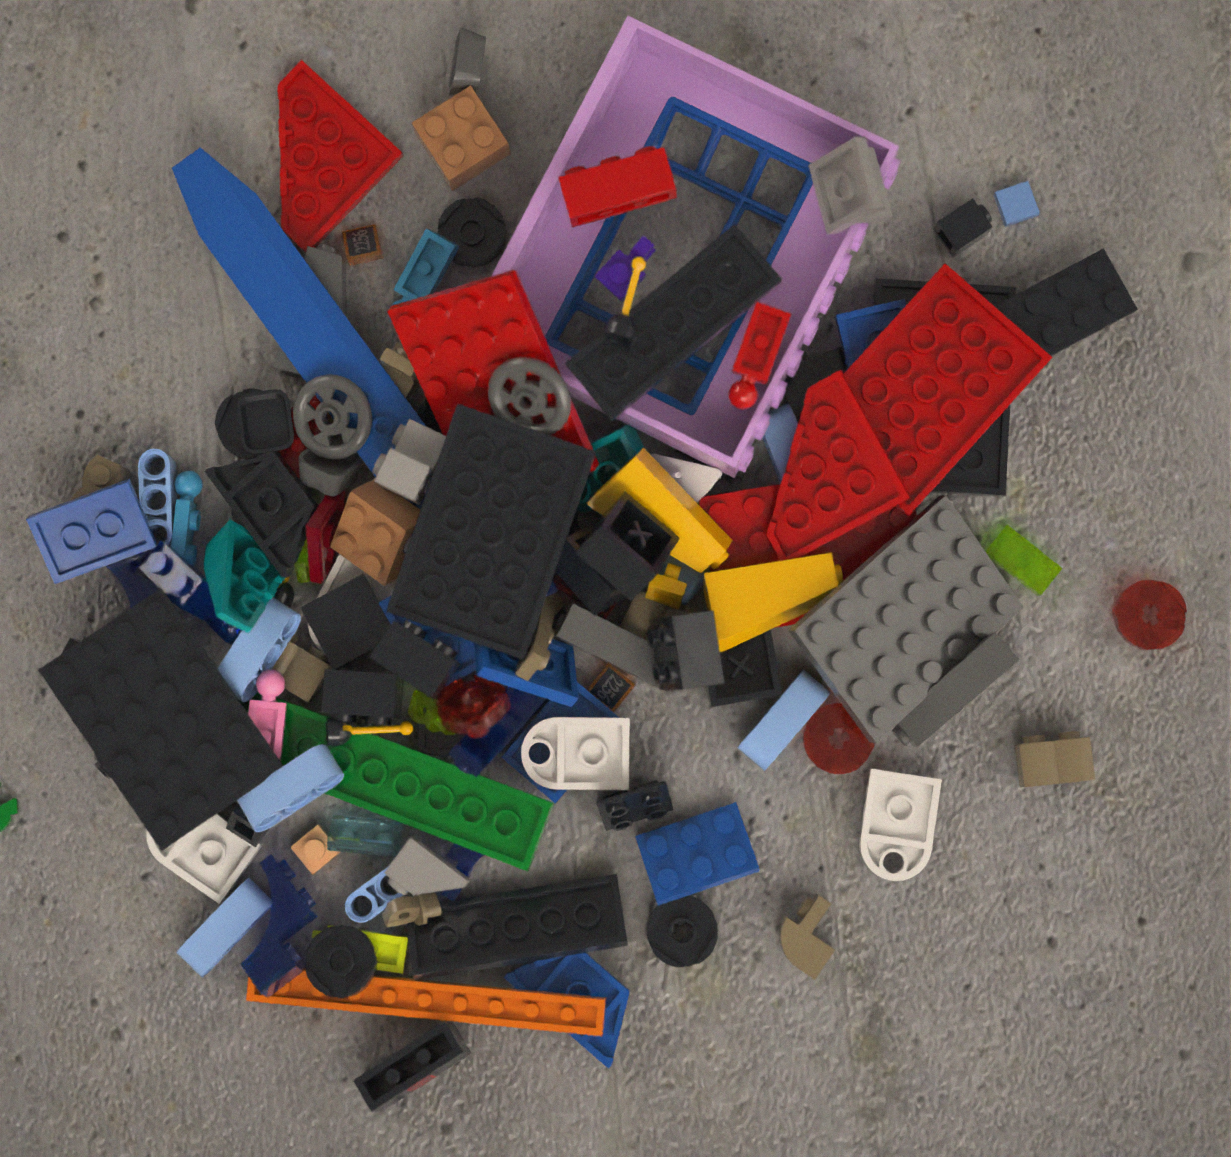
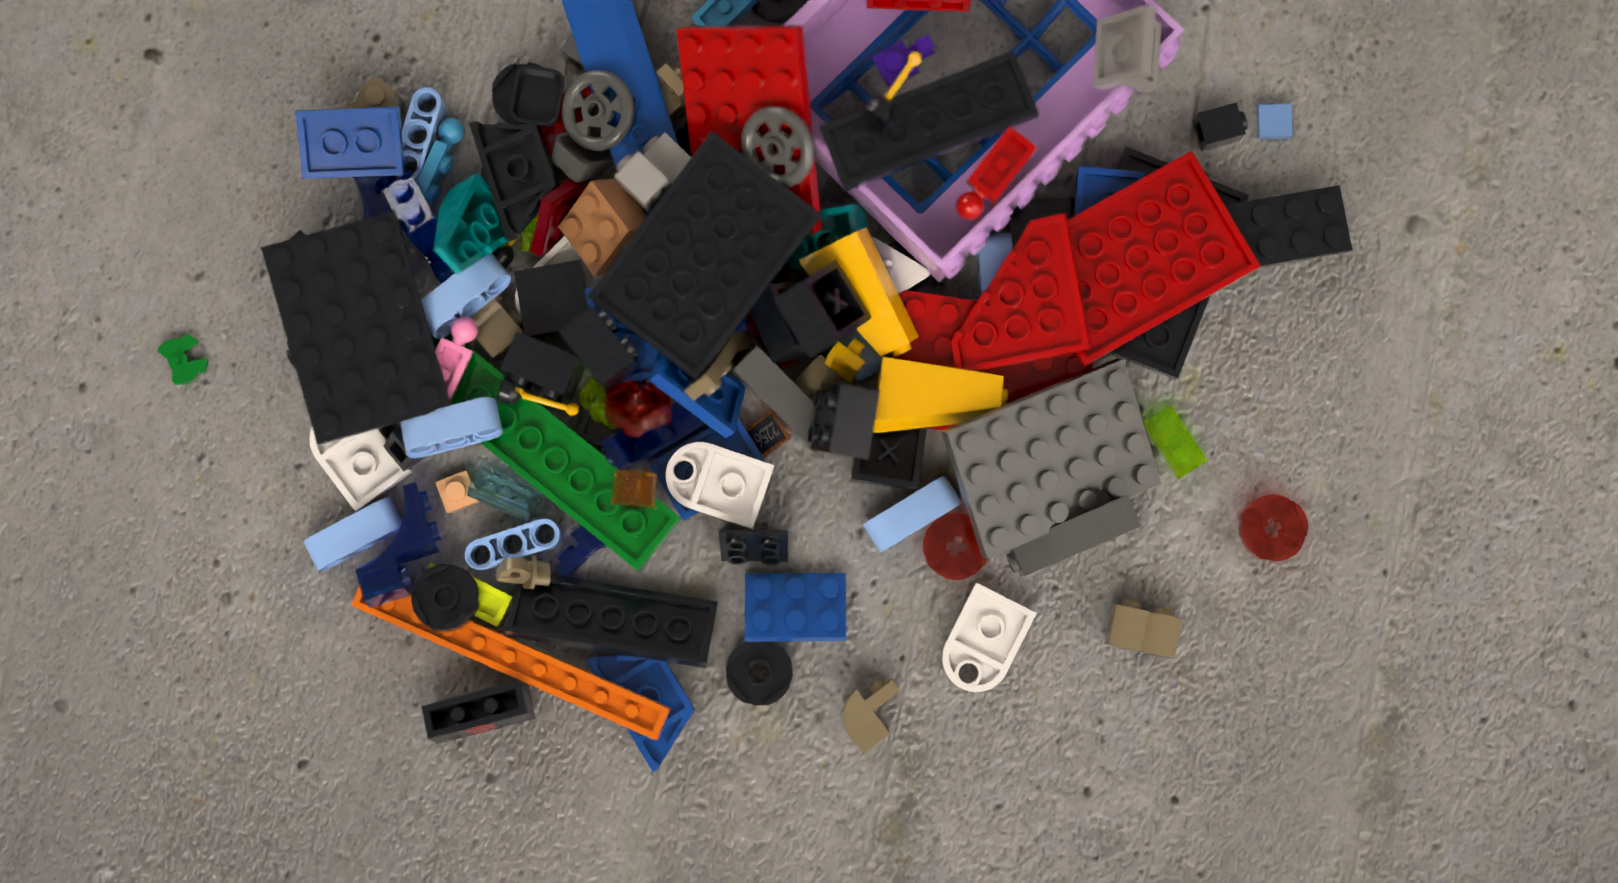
camera: 15 degrees right, 0 degrees up
(423, 871) = (544, 539): light grey slope -> none
(496, 789) = (634, 488): none -> clear orange slope

